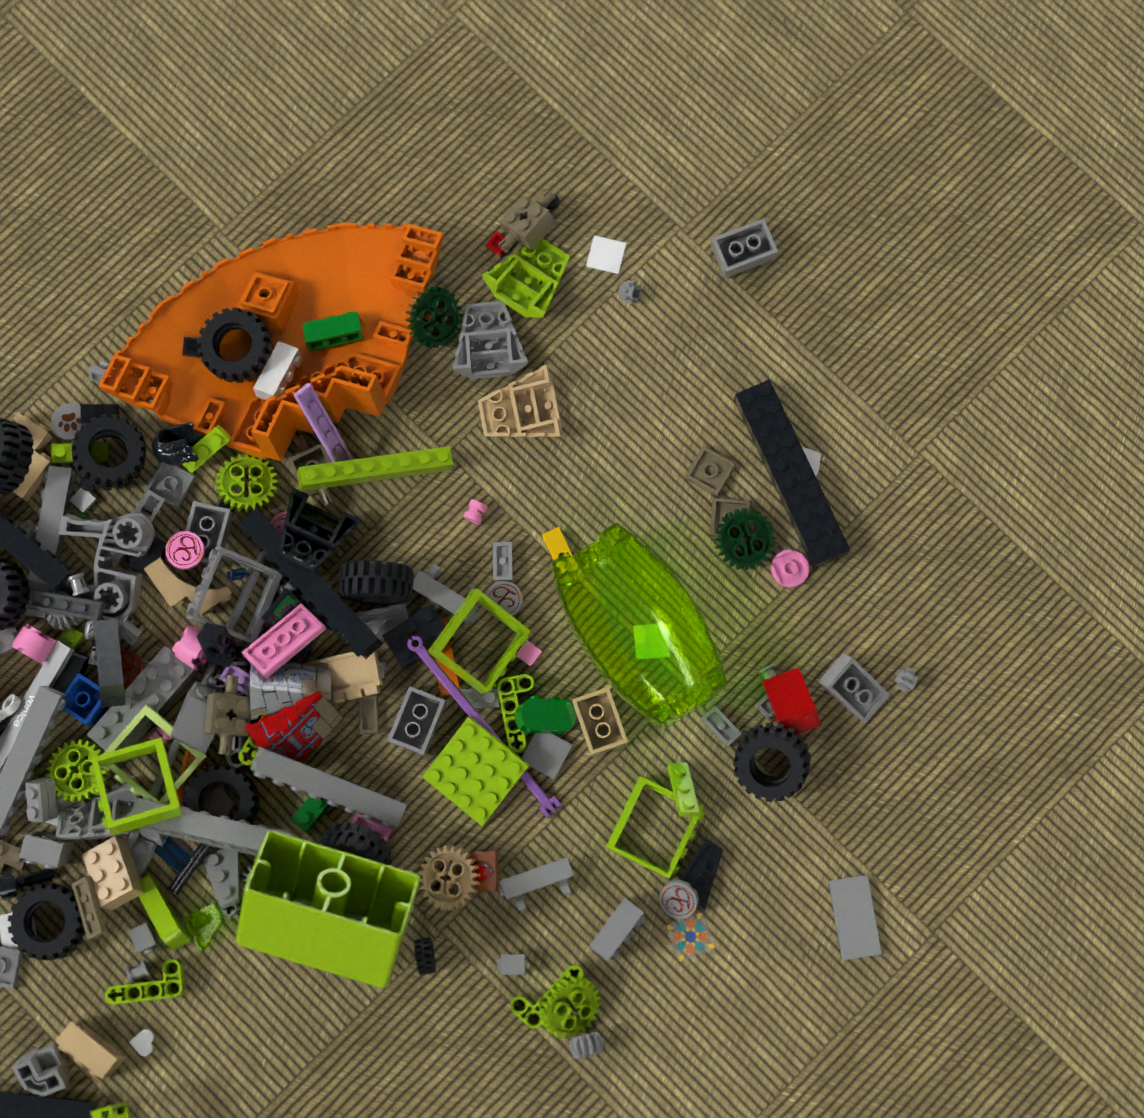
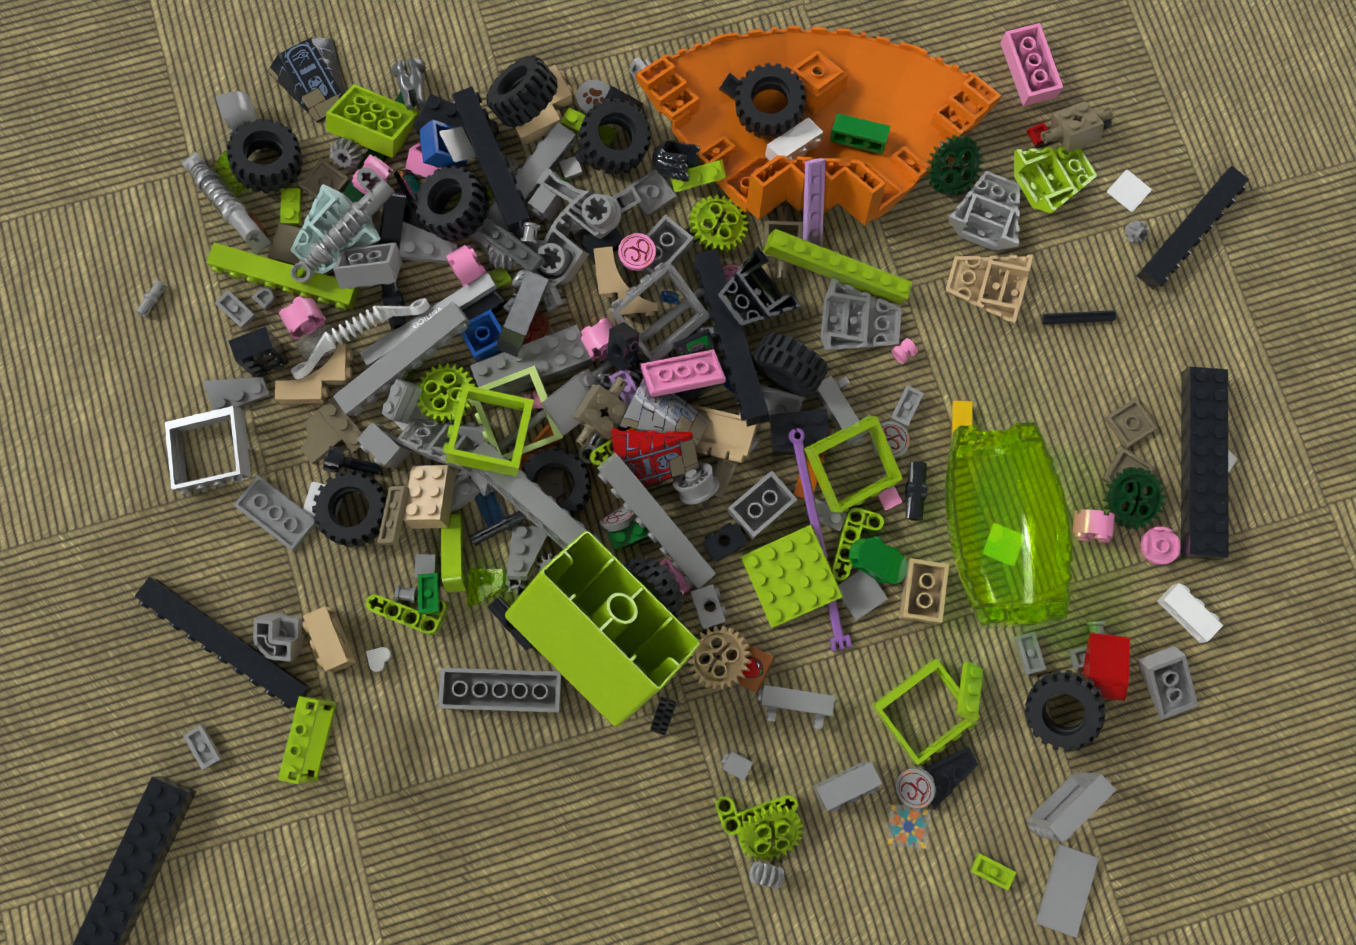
camera: 20 degrees right, 0 degrees up
(77, 549) = (544, 204): none -> light grey brick
(158, 960) = (428, 594): none -> green plate
(228, 940) = (499, 608): none -> black piece
(268, 1011) = (500, 690): none -> light grey brick
(293, 804) = (617, 519): none -> light grey tile
(349, 734) = (697, 485): none -> light grey wheel
(405, 832) = (706, 618): none -> light grey brick
(411, 765) = (718, 552): none -> black brick
(419, 505) = (857, 319): none -> light grey wedge
(458, 183) = (1031, 64): none -> bright pink brick
(549, 634) = (916, 491): none -> black piece
(616, 398) = (1078, 317): none -> black axle
(678, 261) = (1192, 227): none -> black brick
(719, 583) = (1093, 525): none -> bright pink brick
(744, 248) = (1258, 245): light grey brick -> none
(782, 936) = (993, 871): none -> lime plate
(814, 844) = (1070, 806): none -> light grey window
(843, 615) = (1190, 612): none -> white brick
(906, 679) = (1221, 700): light grey gear -> none

